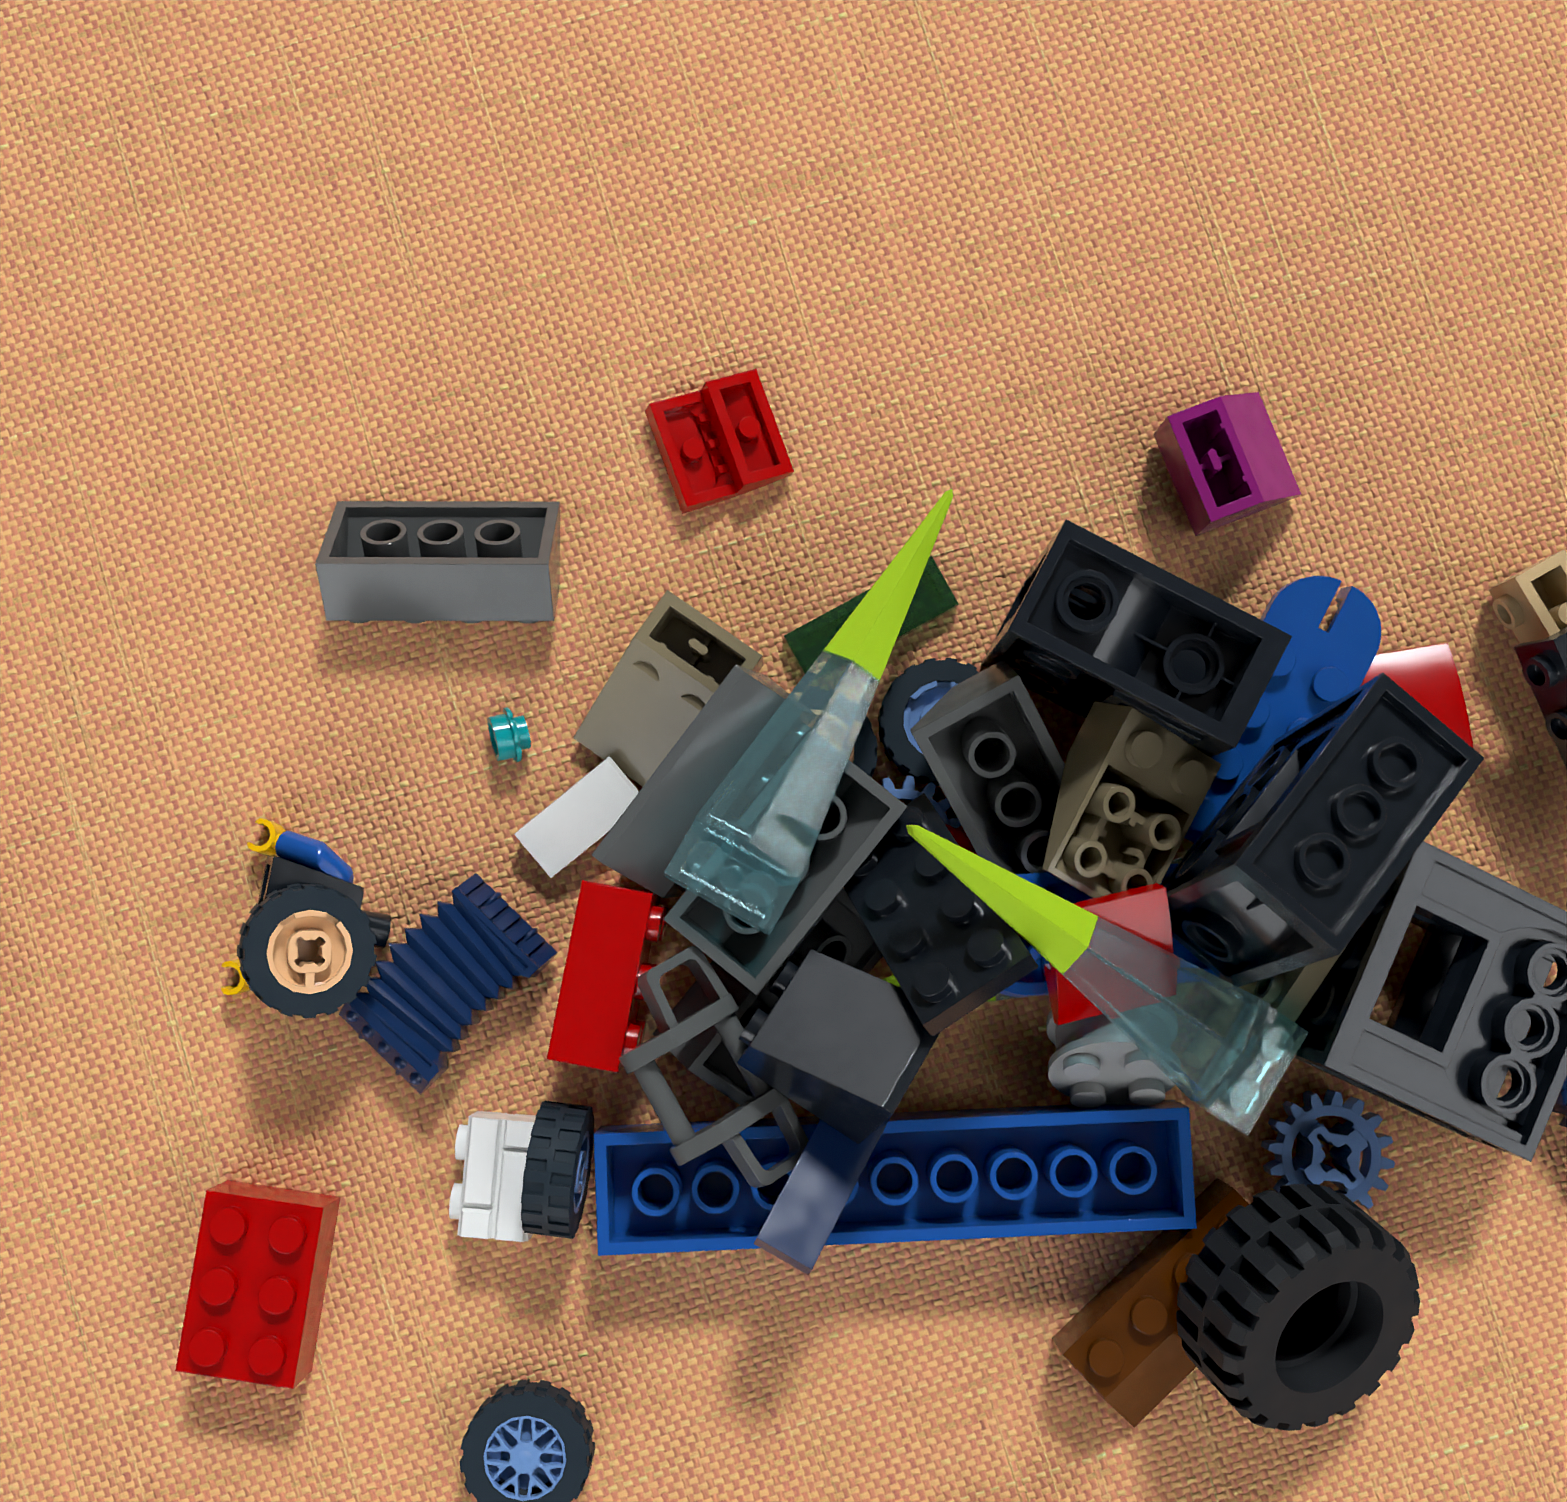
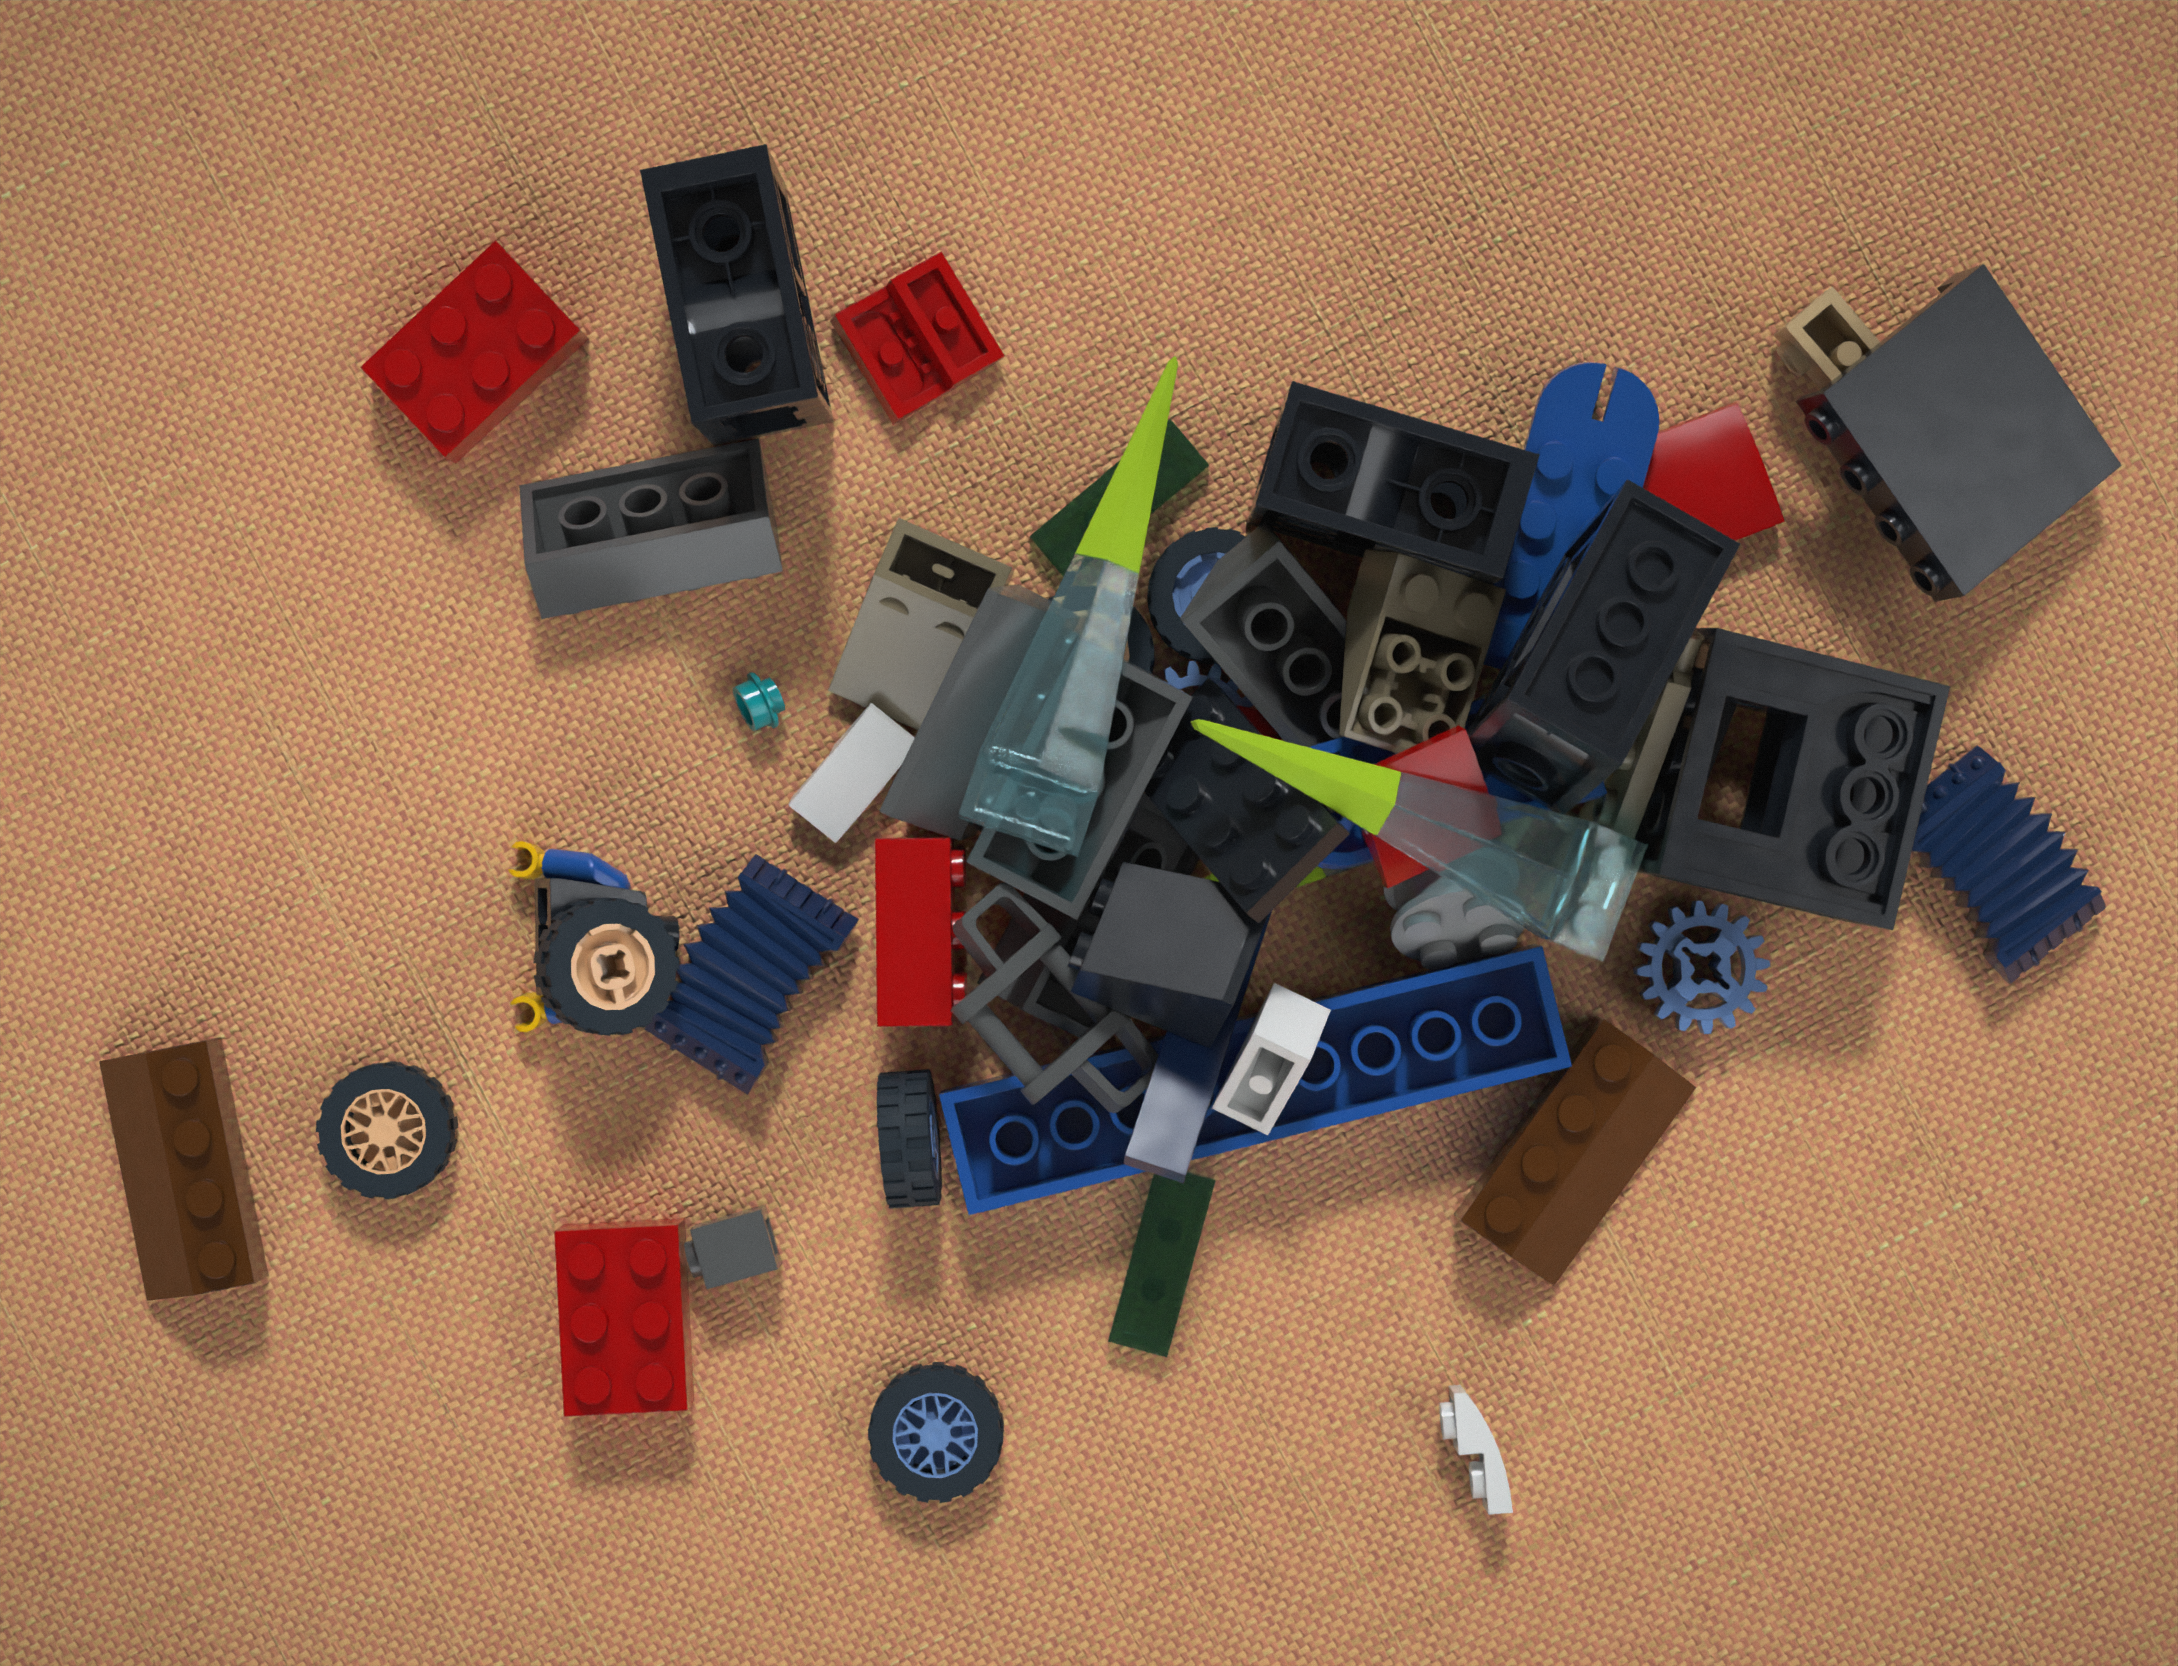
camera: 10 degrees left, 5 degrees up
(81, 1060) = (387, 1130): none -> black wheel
(319, 373) = (474, 352): none -> red brick
(375, 1236) = (733, 1247): none -> dark grey brick
(492, 1183) = (844, 1161): white brick -> none
(557, 350) = (736, 302): none -> black piece
(769, 1336) = (1161, 1263): none -> clear green tile
(916, 1166) = (1271, 1059): none -> white slope
(1225, 460) = (1467, 253): magenta slope -> none
(1297, 1306) = (1637, 1087): black tyre -> none

